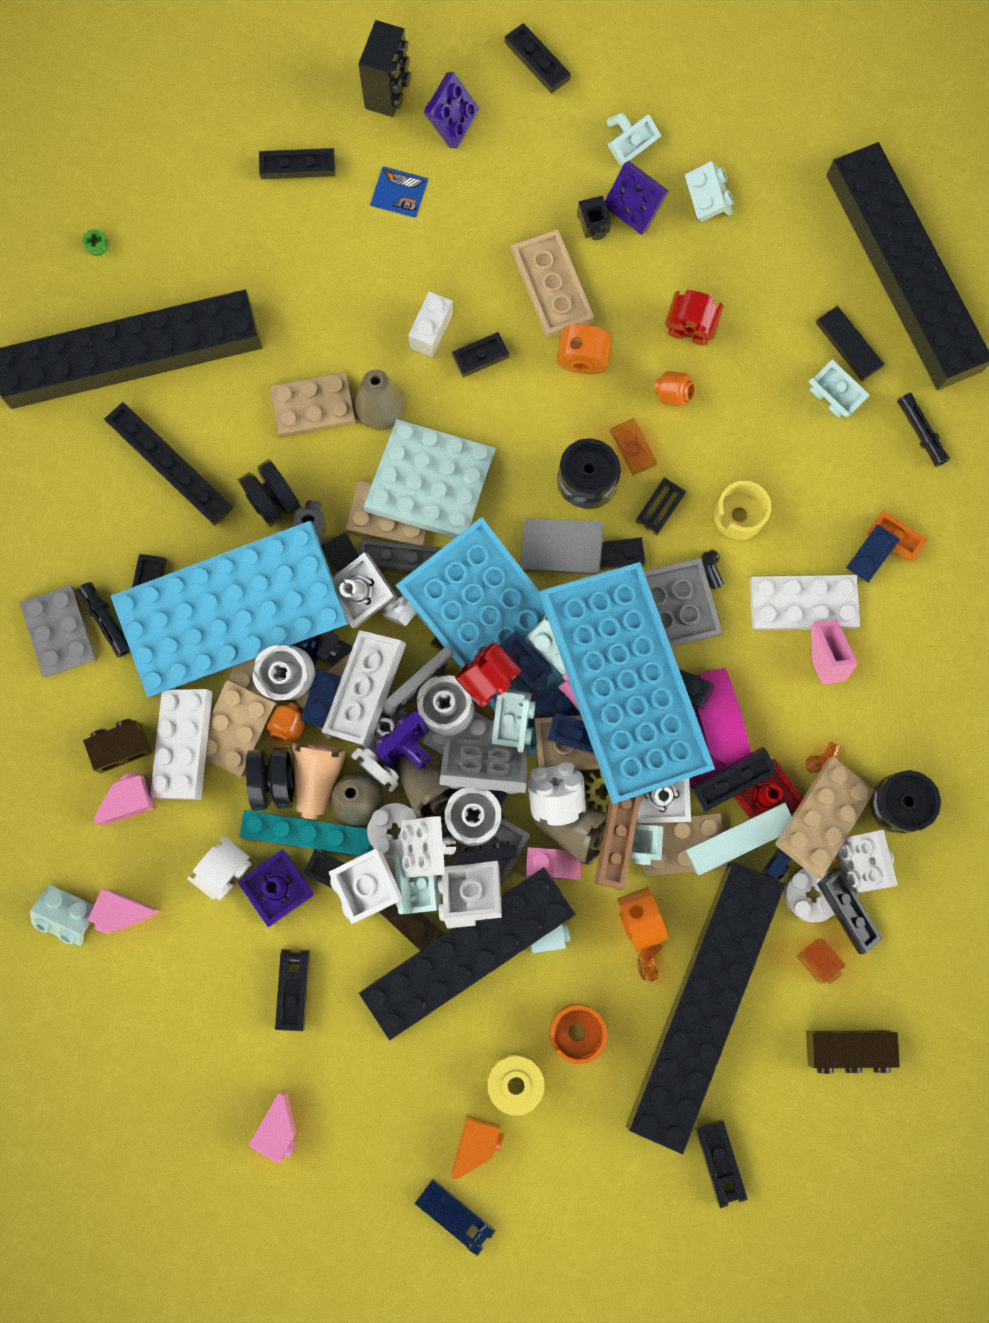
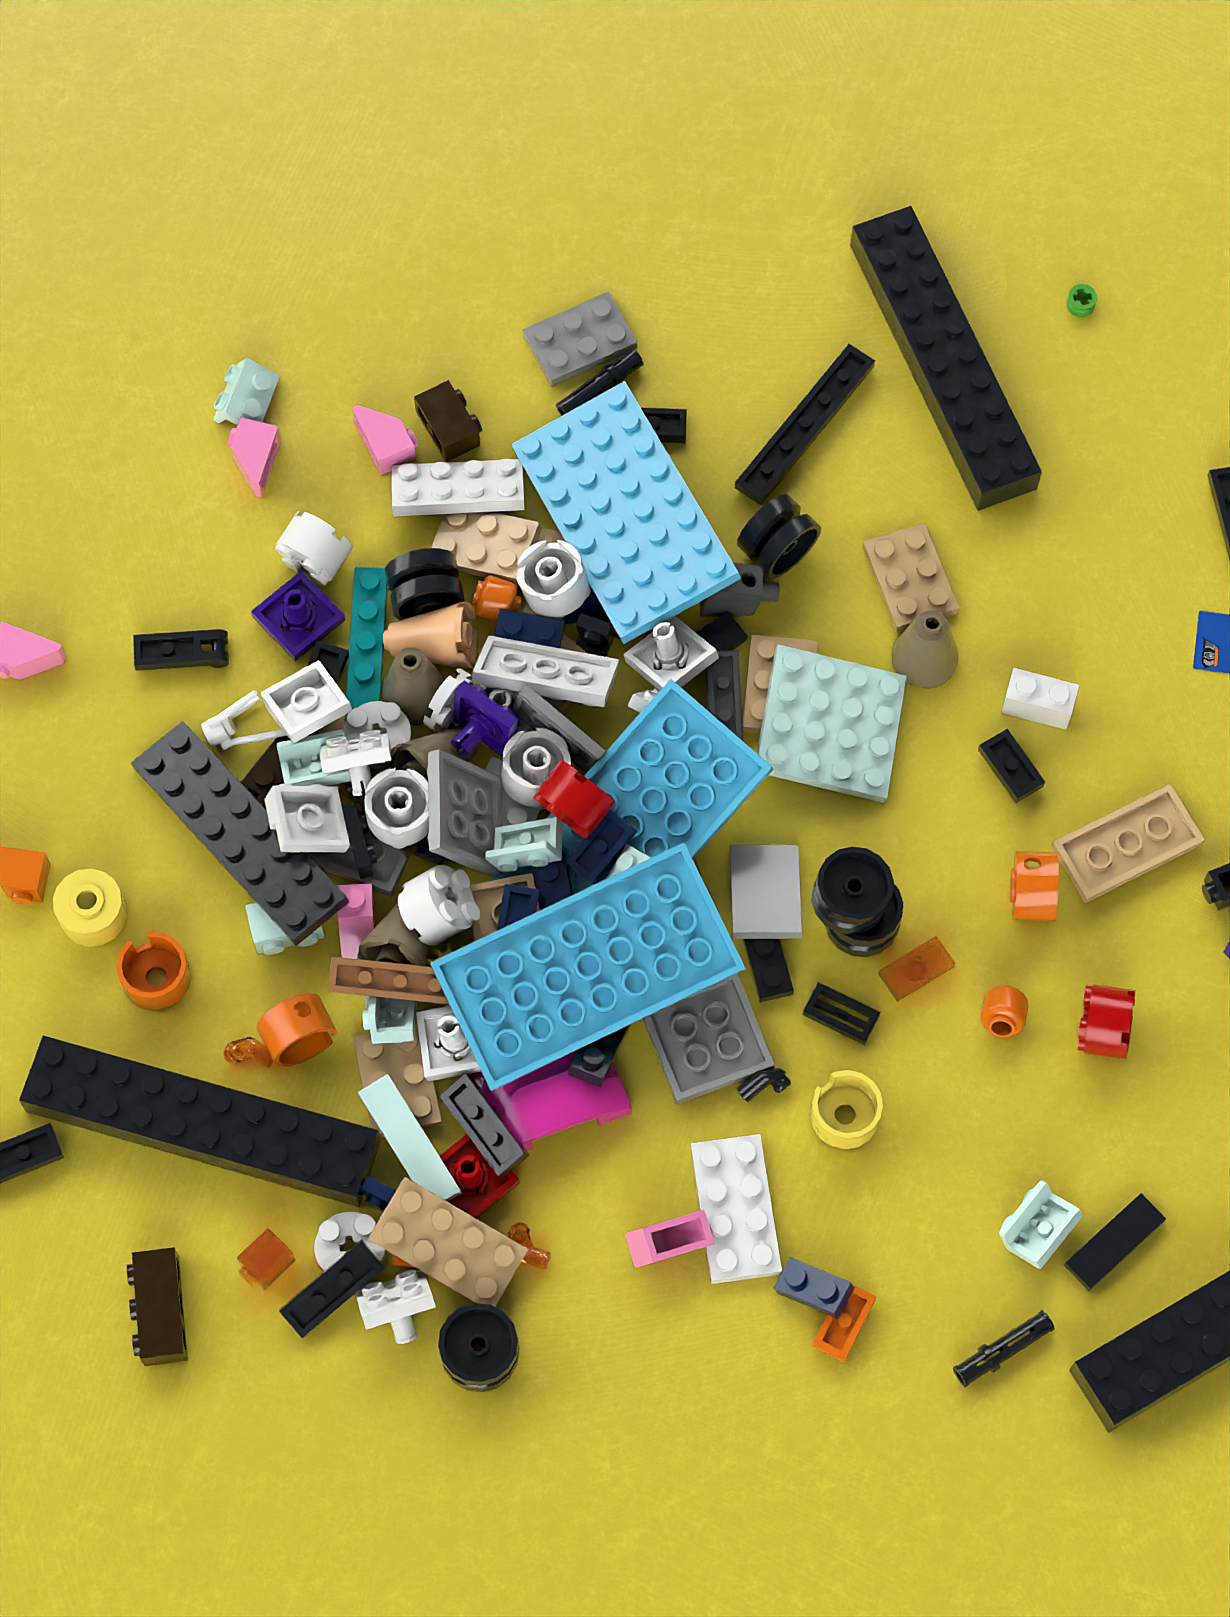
camera: 85 degrees right, 10 degrees down
(368, 960) = (221, 727): none -> white plant

